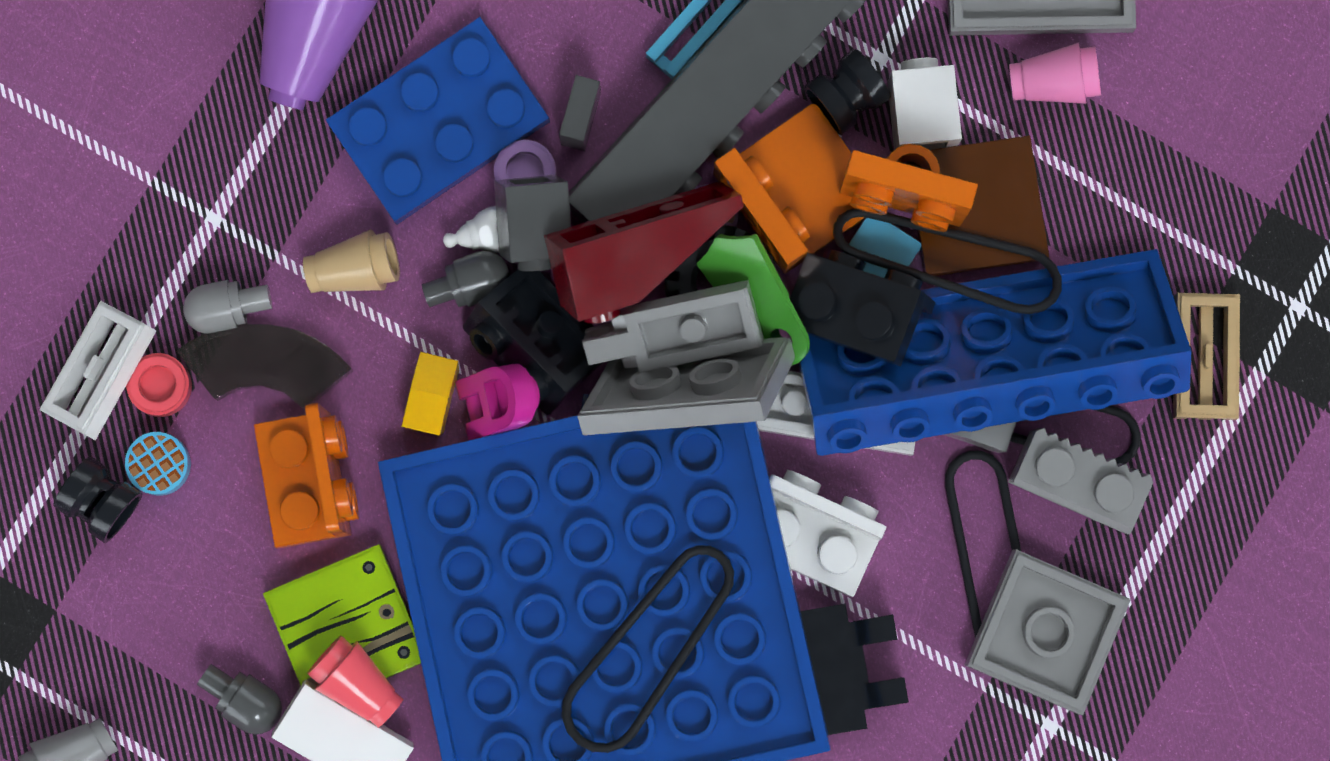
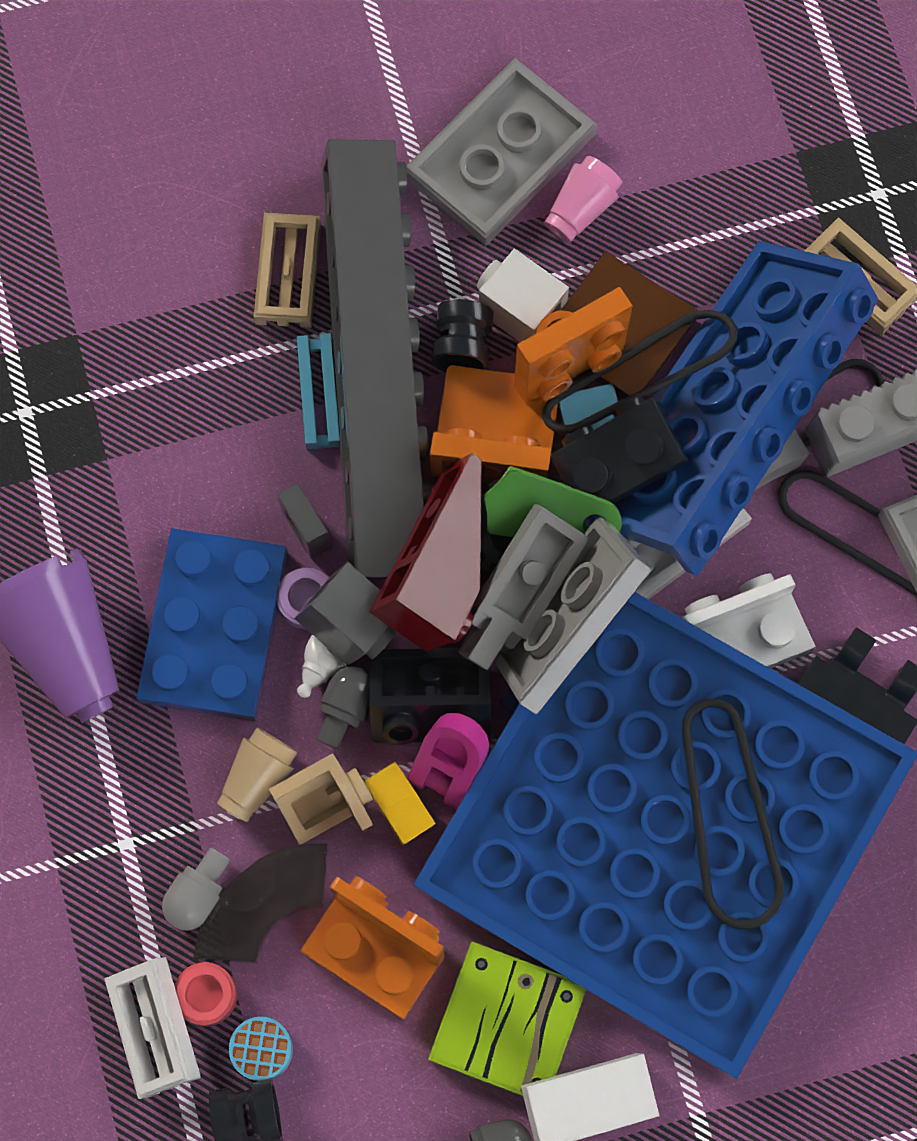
camera: 45 degrees left, 10 degrees down
(355, 682) = (557, 1049): coral cone -> none
(378, 332) = (322, 798): none -> tan bracket

